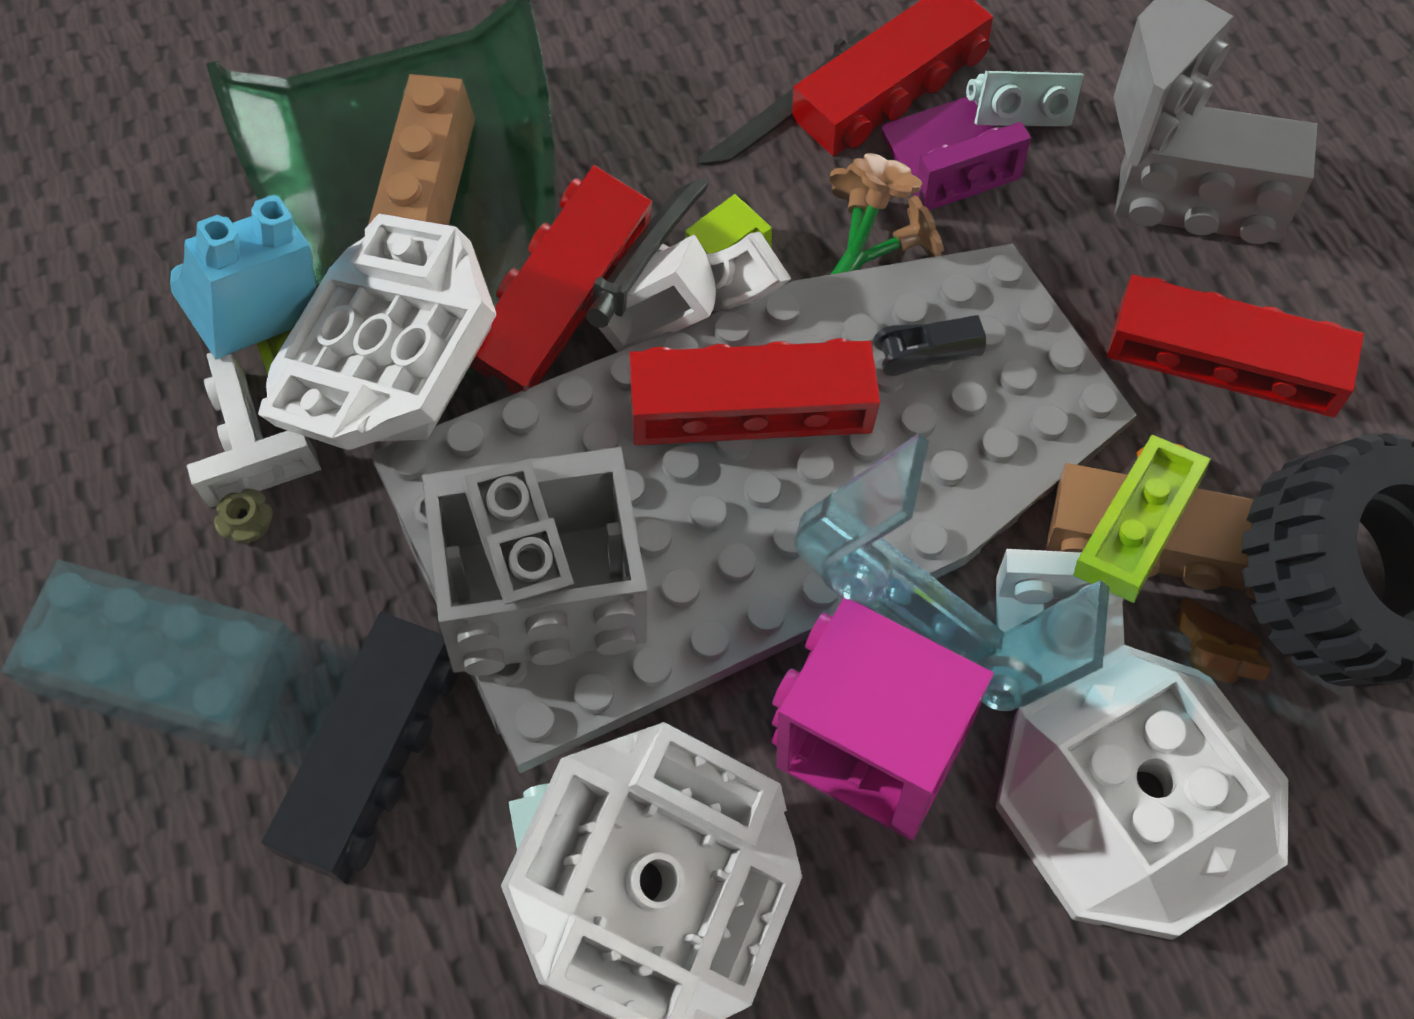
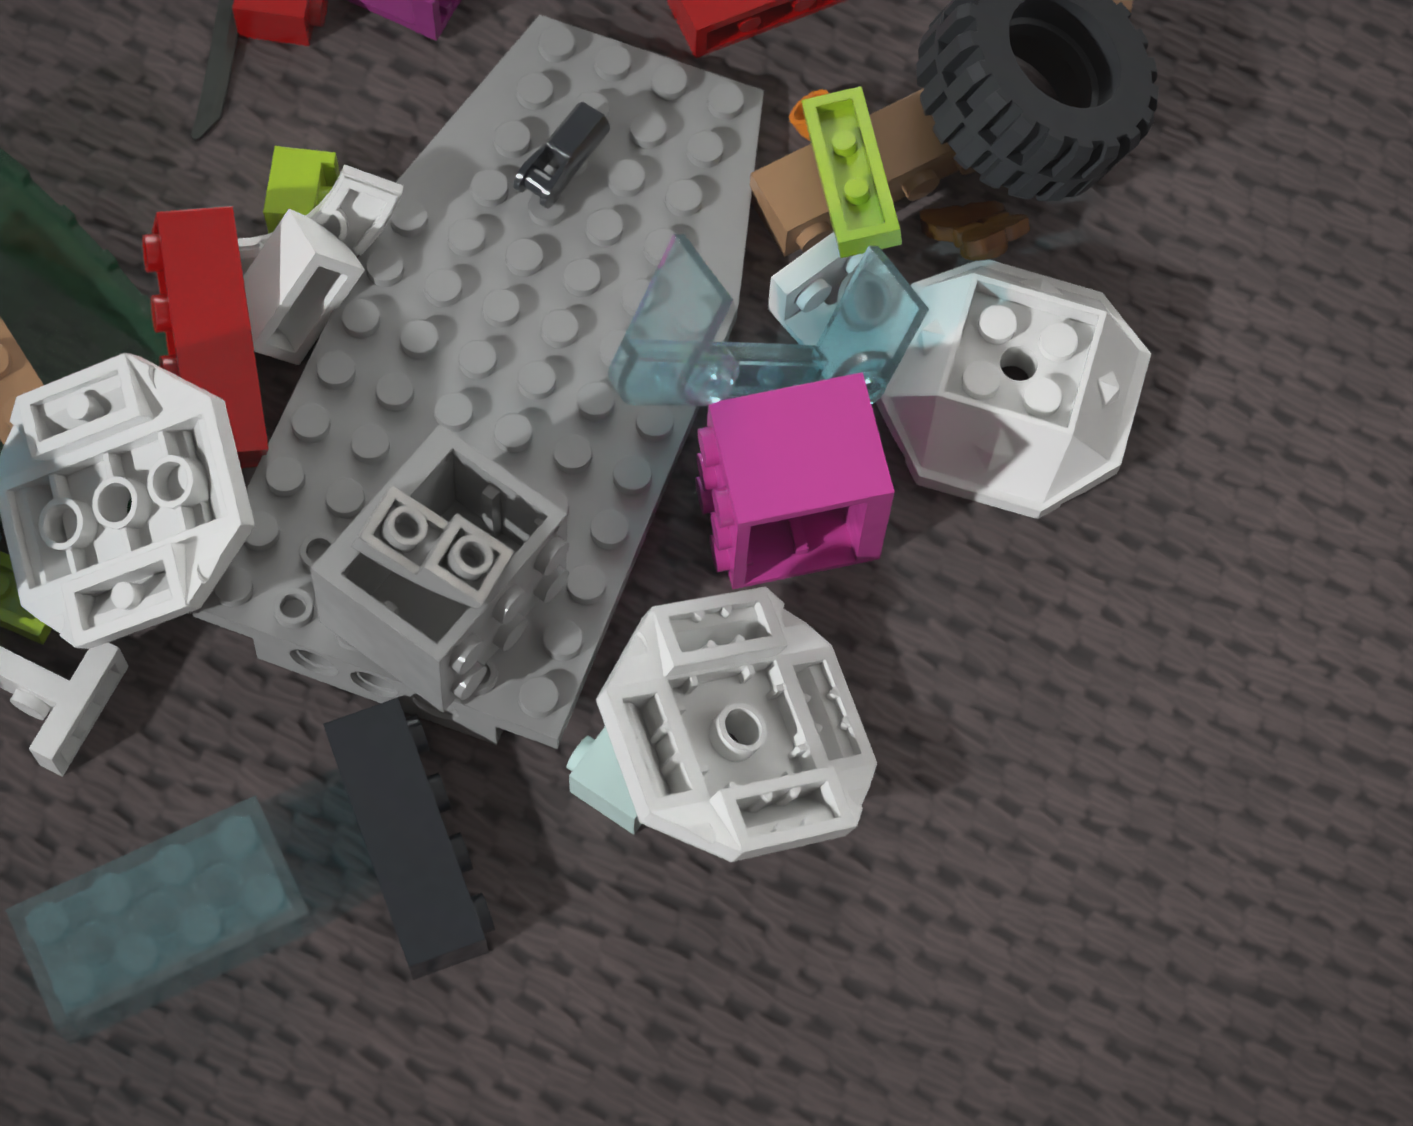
camera: 50 degrees left, 5 degrees up
(252, 525) = (111, 771): olive plate -> none
(611, 295) = (266, 311): pearl dark grey sword -> none
(753, 392) = (463, 305): red brick -> none
(869, 187) = (411, 39): medium nougat plant -> none

